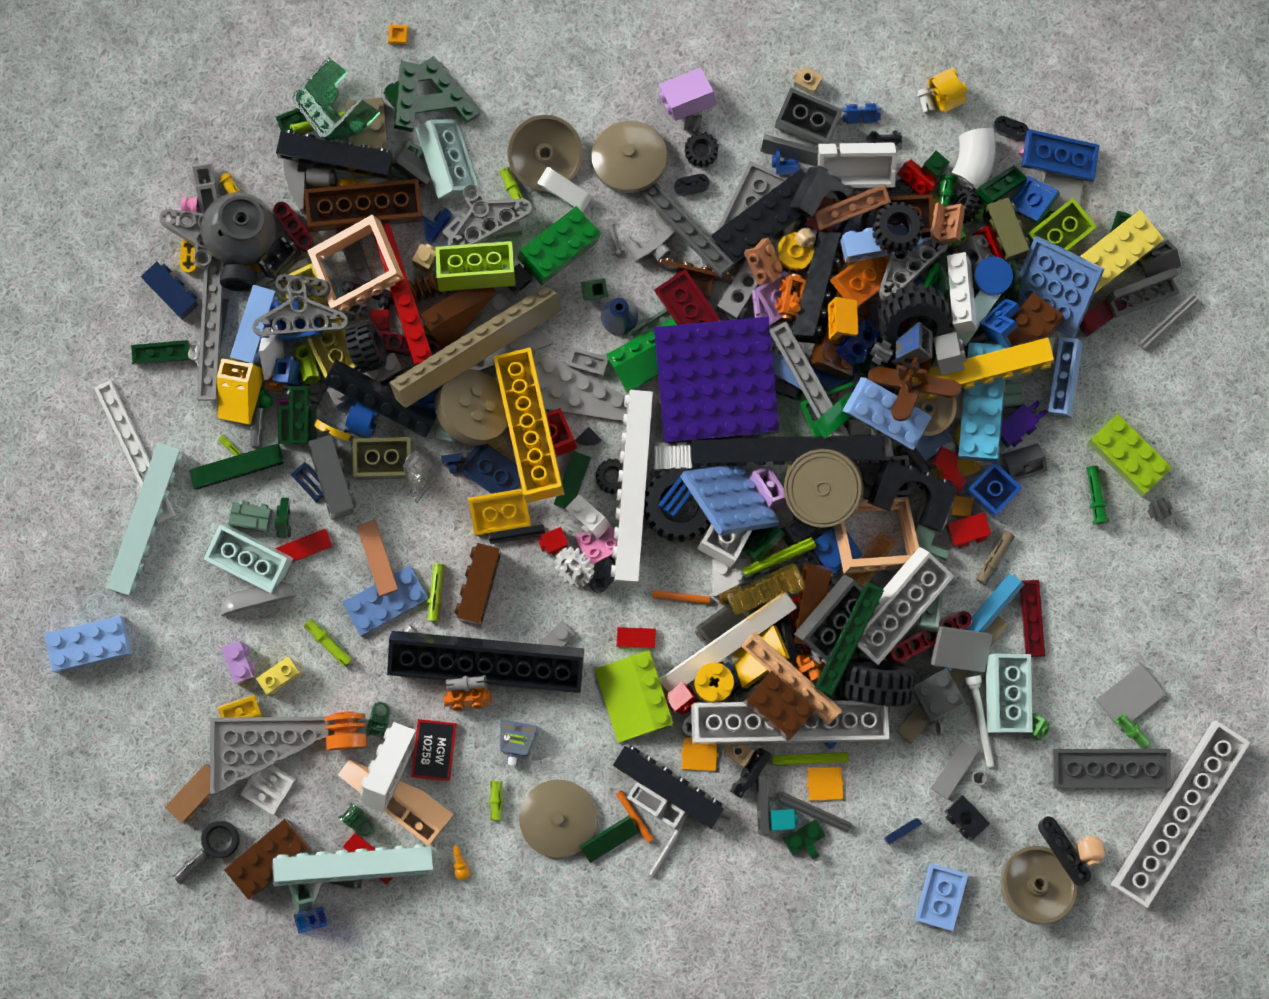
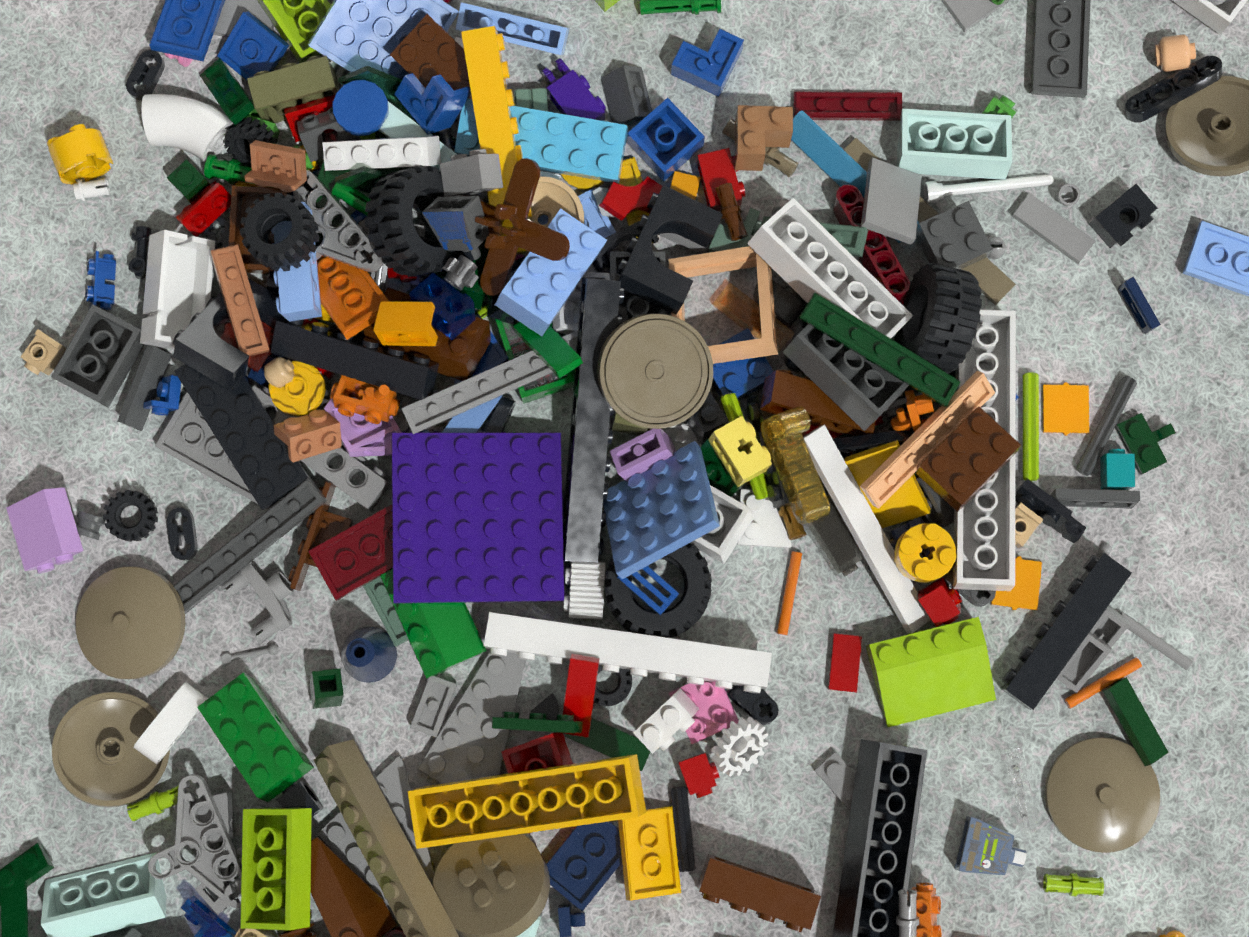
camera: 85 degrees left, 0 degrees up
(581, 429) = (537, 722): none -> dark green plate
(601, 456) = (581, 690): none -> red tile
(763, 552) = (741, 465): none -> light yellow brick
(943, 537) = (731, 212): none -> reddish brown pin
(1005, 551) = (760, 128): none -> medium nougat brick
(1049, 518) = (711, 68): none -> blue panel

